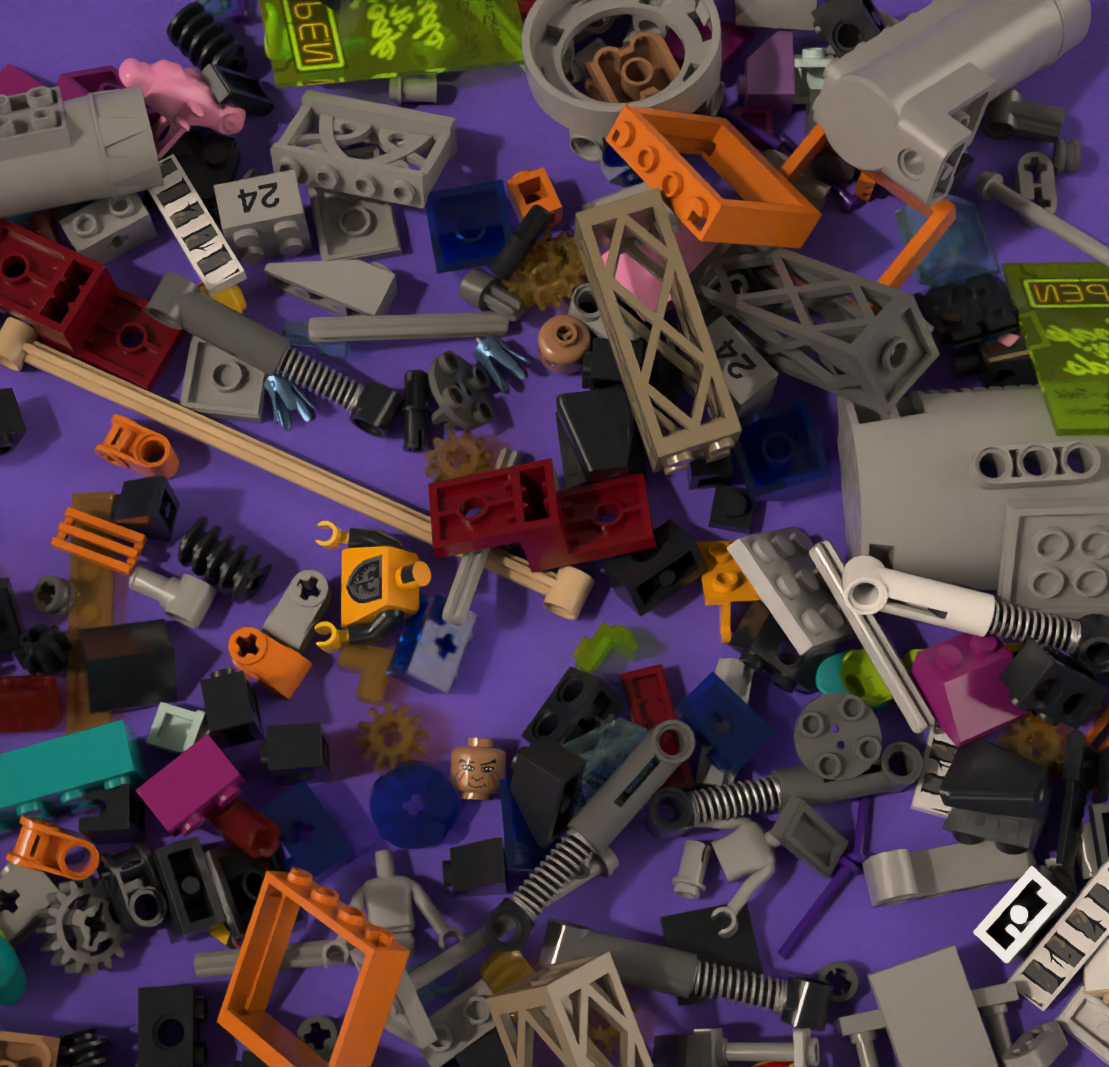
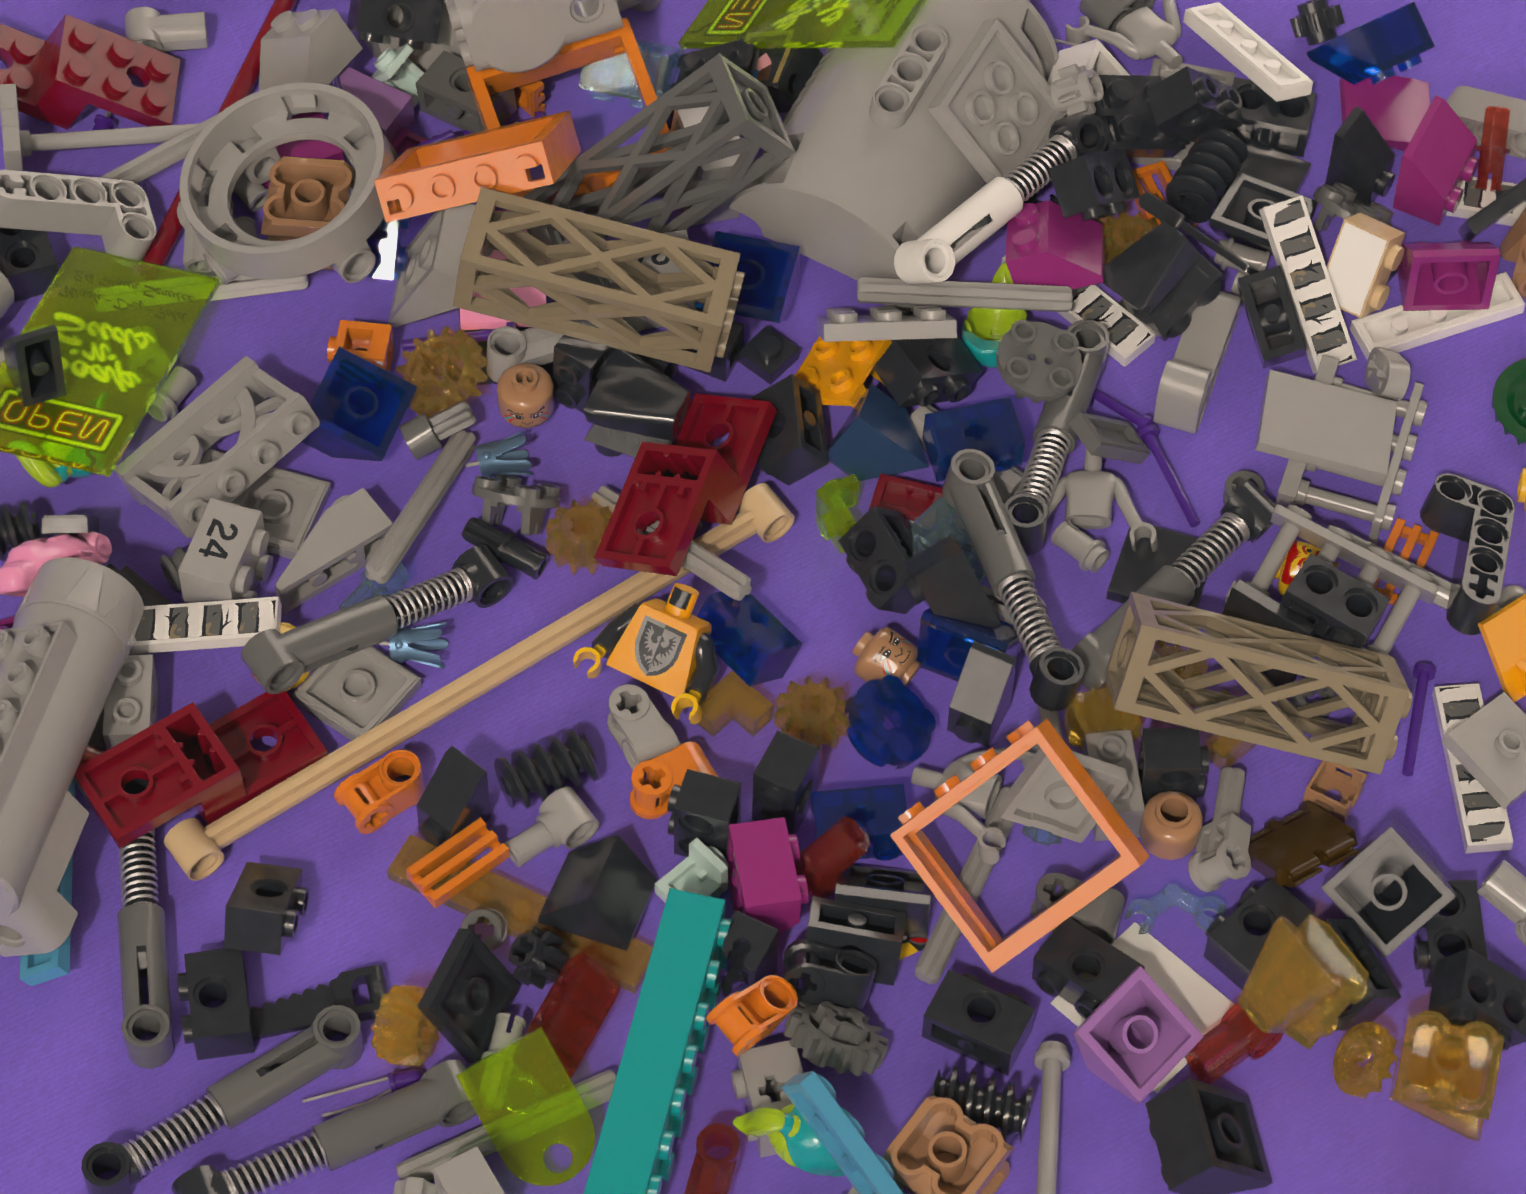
camera: 60 degrees left, 15 degrees down
(520, 242) = (410, 369): black axle -> none
(691, 642) = (877, 439): none -> dark blue slope

